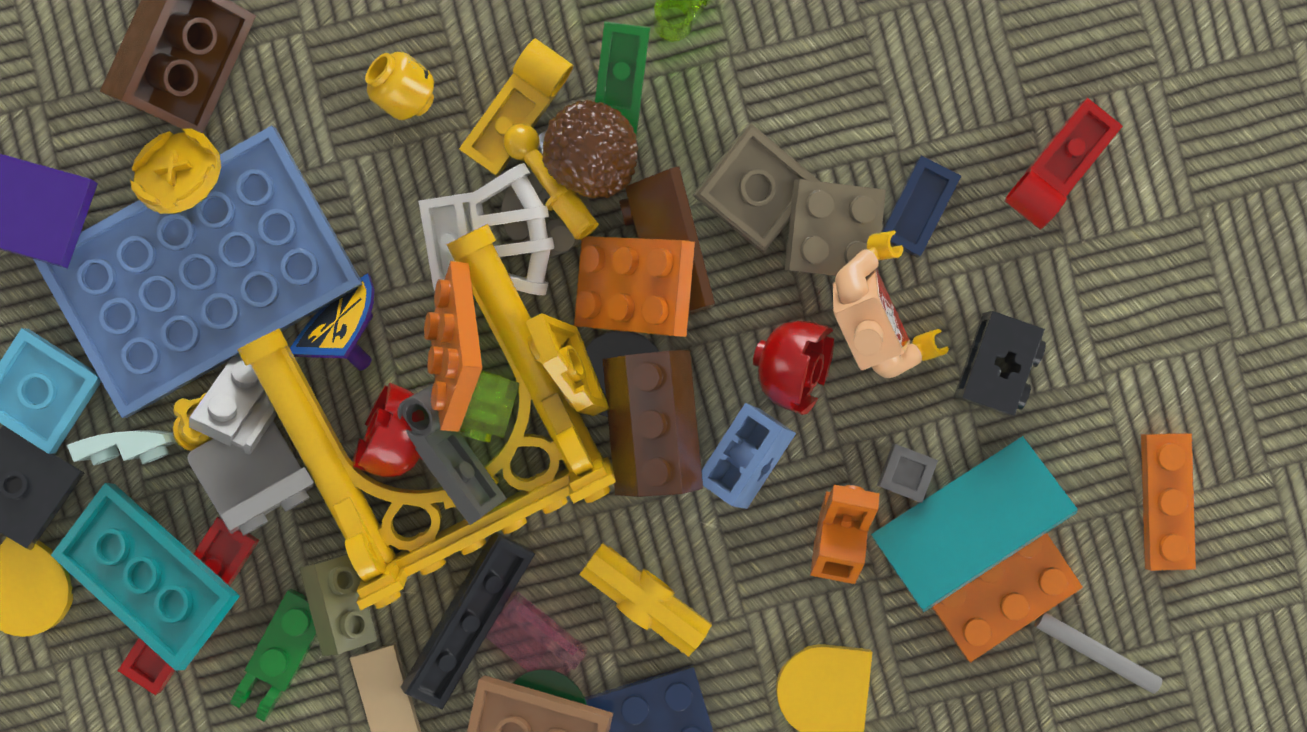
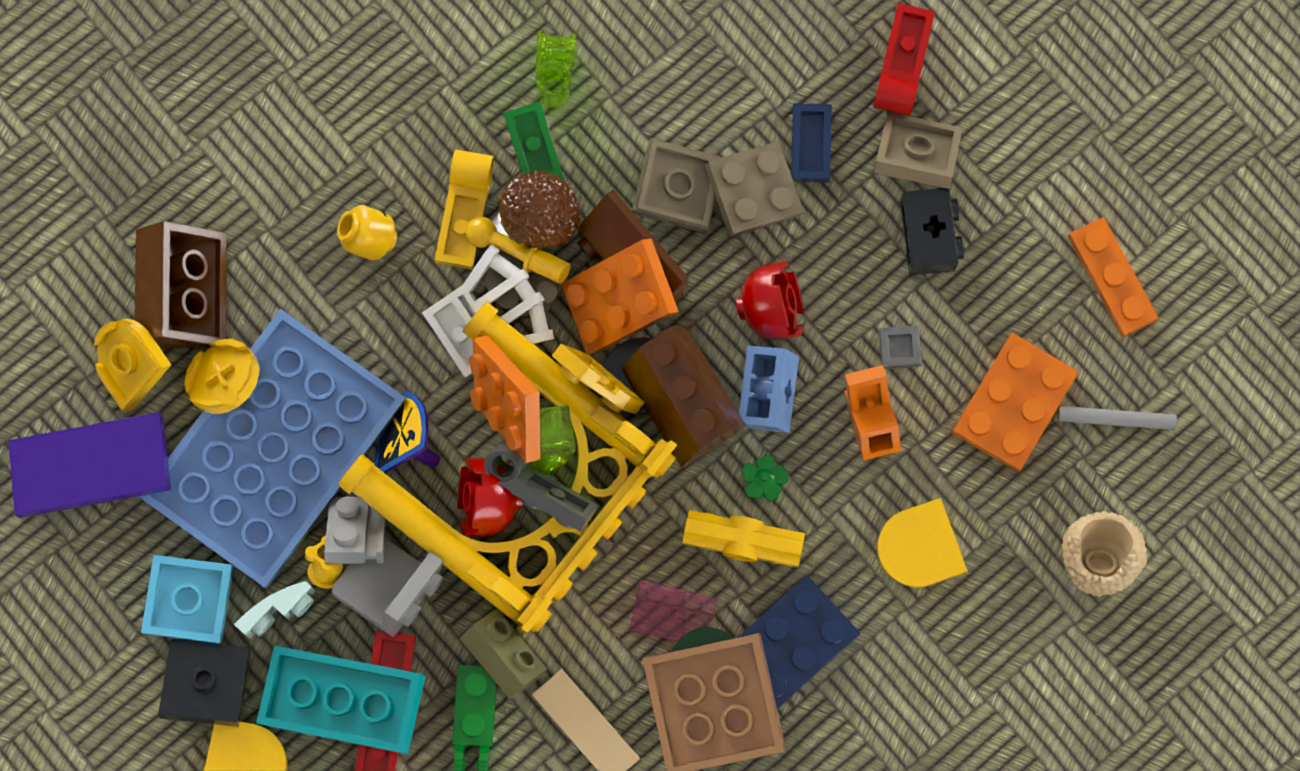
camera: 25 degrees left, 10 degrees down
(84, 109) = (128, 361): none -> yellow tile
(467, 620) = (611, 621): black tile -> none
(698, 542) = (764, 478): none -> green plant
(870, 317) = (813, 239): light nougat torso -> none
(974, 523) = (969, 361): teal tile -> none
(1030, 272) = (918, 150): none -> dark tan plate

